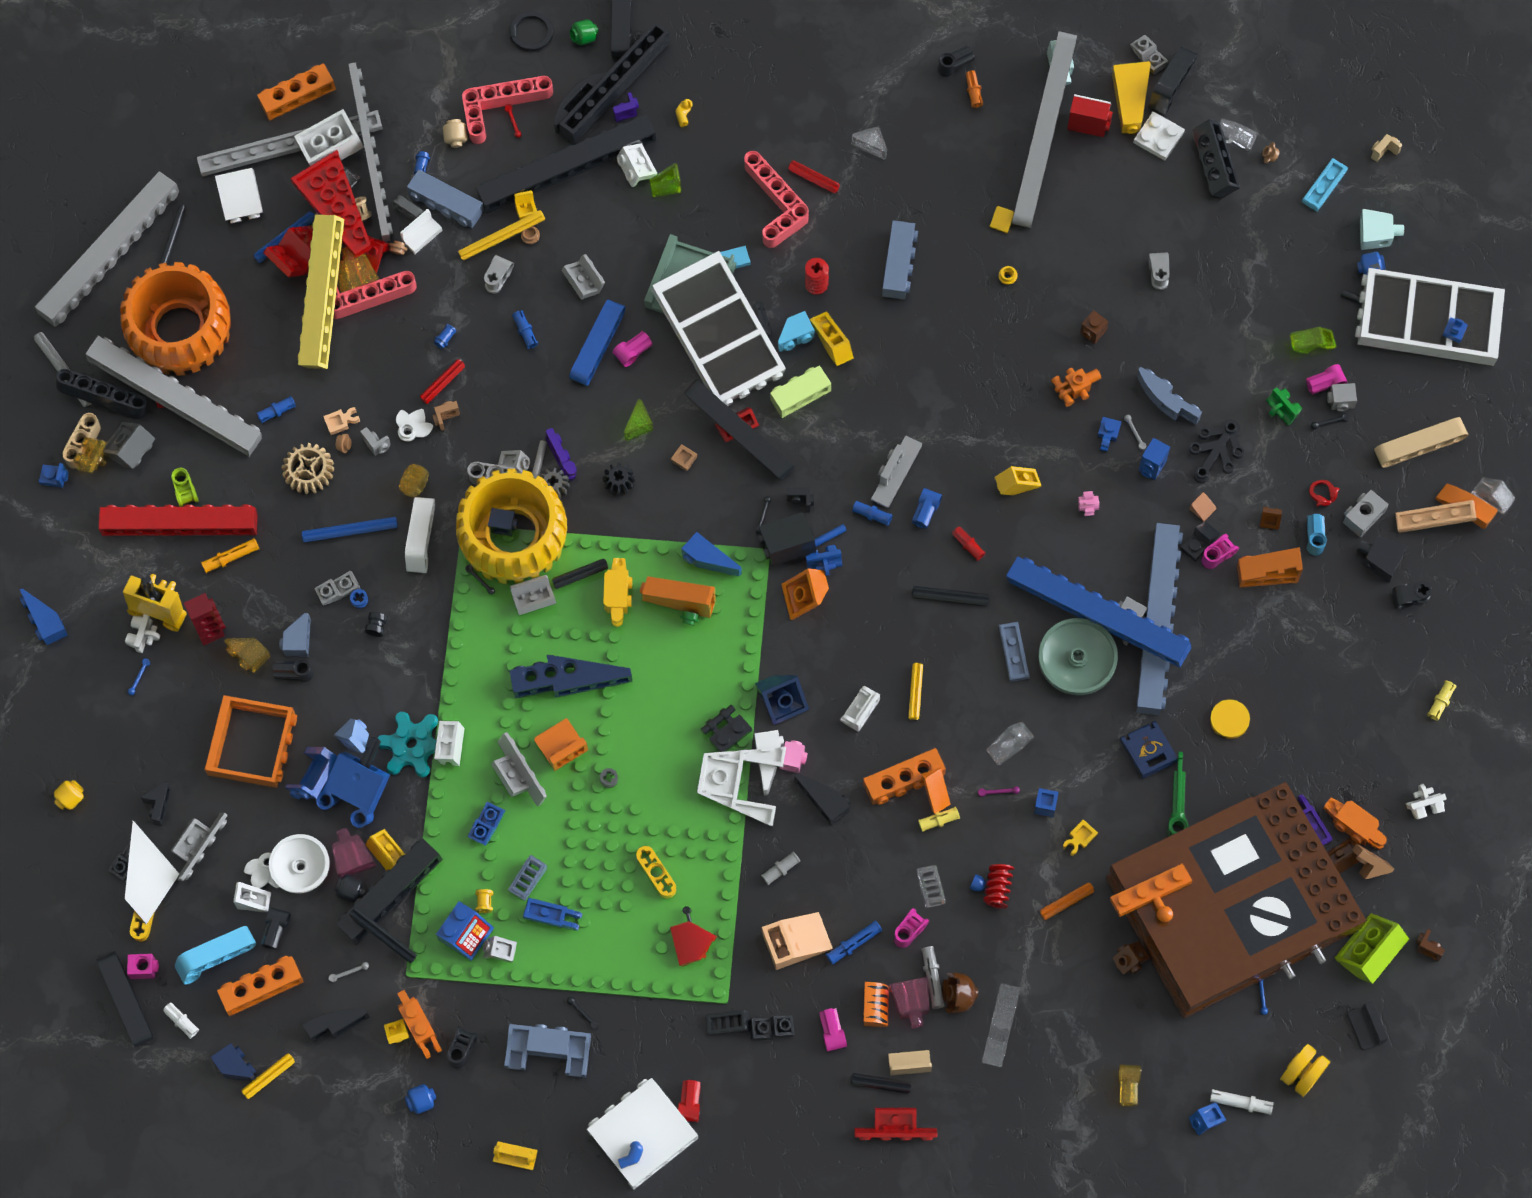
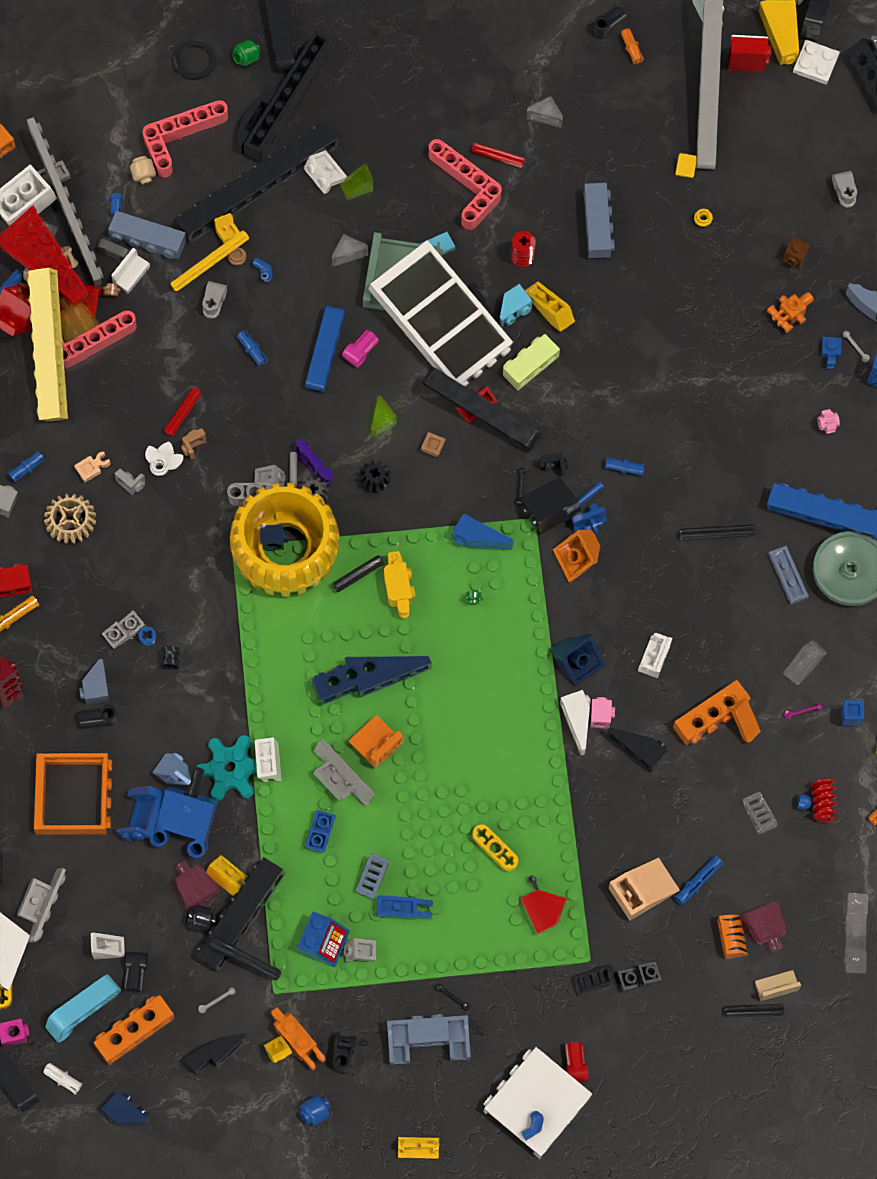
camera: 15 degrees left, 0 degrees up
(249, 651) = (51, 706): clear yellow slope -> none
(260, 872) = (111, 920): white plate -> none
(267, 1076) = (160, 1116): yellow axle -> none
(297, 851) = (146, 891): white dish -> none
(343, 443) = (99, 488): medium nougat plate -> none
(349, 529) = (123, 570): blue axle -> none
(414, 480) = (177, 512): clear yellow gear -> none
(419, 535) = (194, 564): white beam -> none
(443, 338) = (175, 368): blue pin -> none
(469, 569) = (249, 588): black hinge -> none
(483, 901) = (335, 906): yellow bush -> none
(508, 108) = (188, 137): red hinge -> none
(532, 594) = (317, 602): light grey bracket -> none
(556, 252) = (265, 268): none -> blue arm
(584, 277) = (299, 288): light grey bracket -> none
(614, 780) = (423, 764): dark grey bush -> none
(626, 110) = (303, 120): dark purple bracket -> none
(642, 248) = (348, 250): none -> clear slope
(679, 595) = (459, 577): orange slope -> none
(682, 110) = (357, 113): yellow arm -> none
(722, 776) = (539, 744): white wing -> none
(730, 733) = (536, 702): black plate -> none
(780, 868) = (613, 822): light grey pin -> none
(833, 1034) = (699, 973): dark pink piece -> none
(895, 471) = (639, 422): light grey bracket -> none
(895, 1123) = (777, 1046): red bracket -> none
(912, 926) = (749, 854): dark pink piece -> none
(915, 693) = (704, 631): yellow axle -> none
(928, 503) = (676, 449): blue piece -> none
(931, 969) = (777, 891): light grey pin -> none
(939, 819) = (753, 747): light yellow pin -> none
(958, 992) = (809, 910): reddish brown cylinder -> none
(968, 543) = (722, 479): red axle -> none
(1017, 480) = (756, 411): yellow slope -> none

